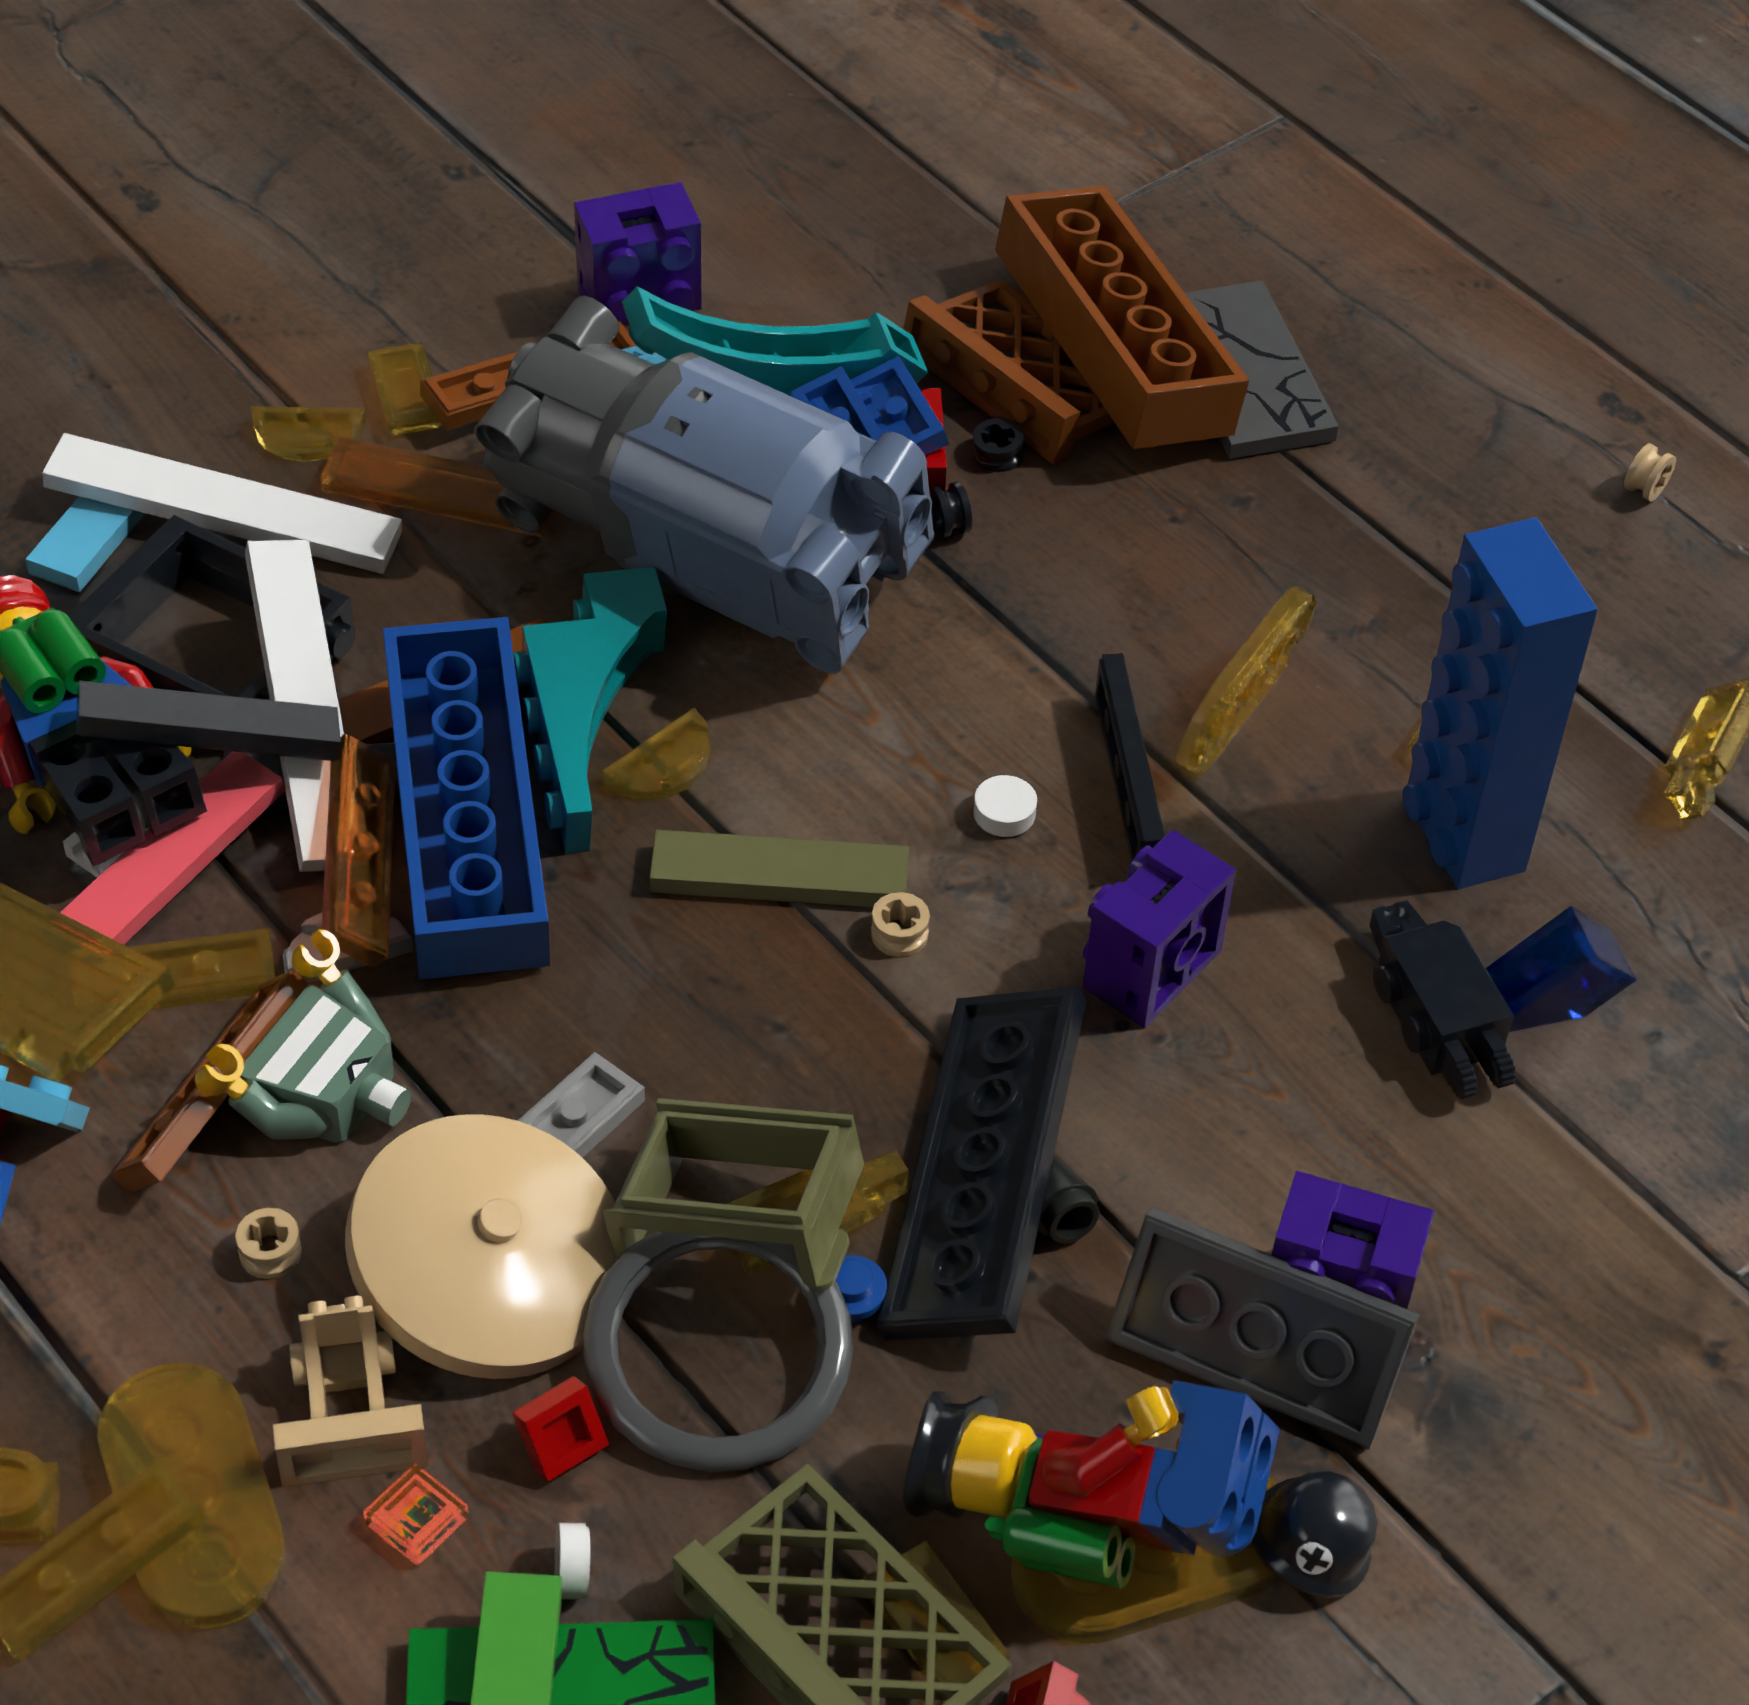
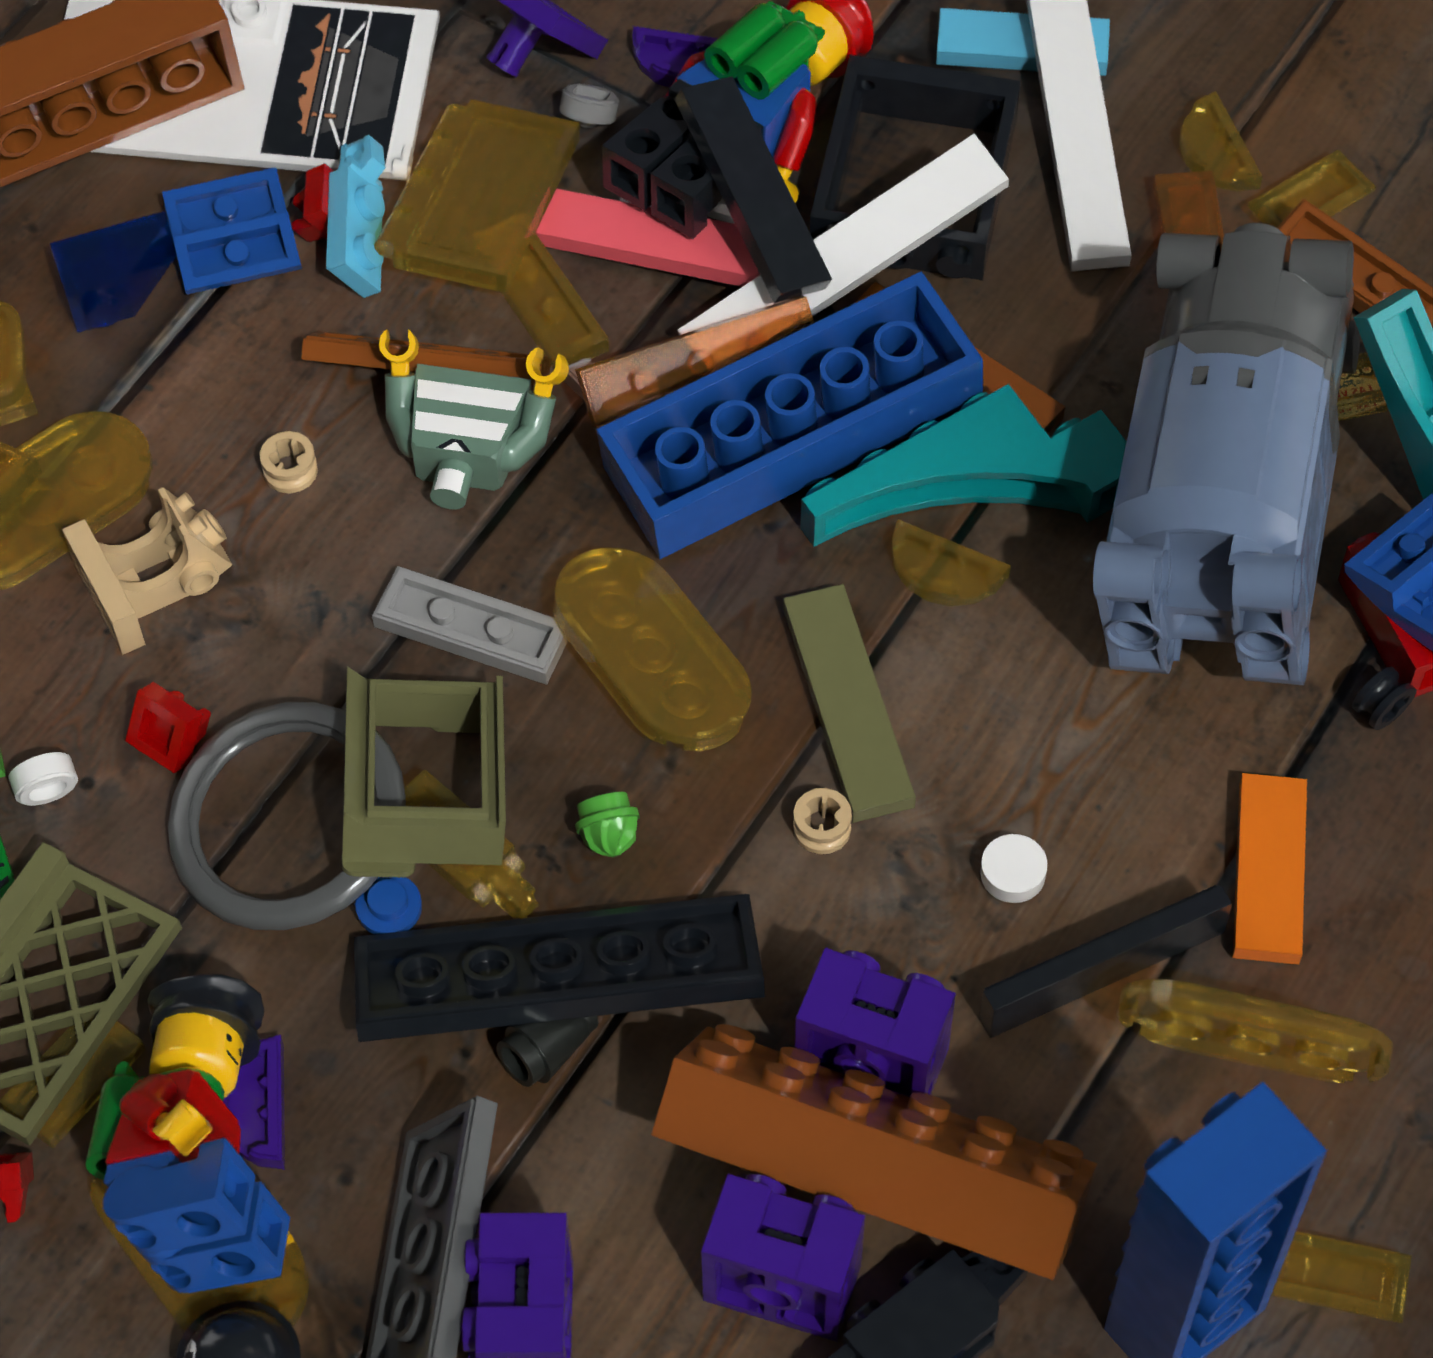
camera: 75 degrees right, 10 degrees up
(416, 1514) = (67, 660): clear orange tile -> none
(480, 1244) = (311, 587): tan dish -> none
(657, 993) = (651, 649): none -> clear yellow tile
(839, 1081) = (607, 823): none -> bright green plate
(1071, 636) = (1270, 869): none -> orange tile
(1273, 958) = (876, 1148): none -> dark orange brick
(1354, 1055) = (782, 1255): none -> dark purple piece

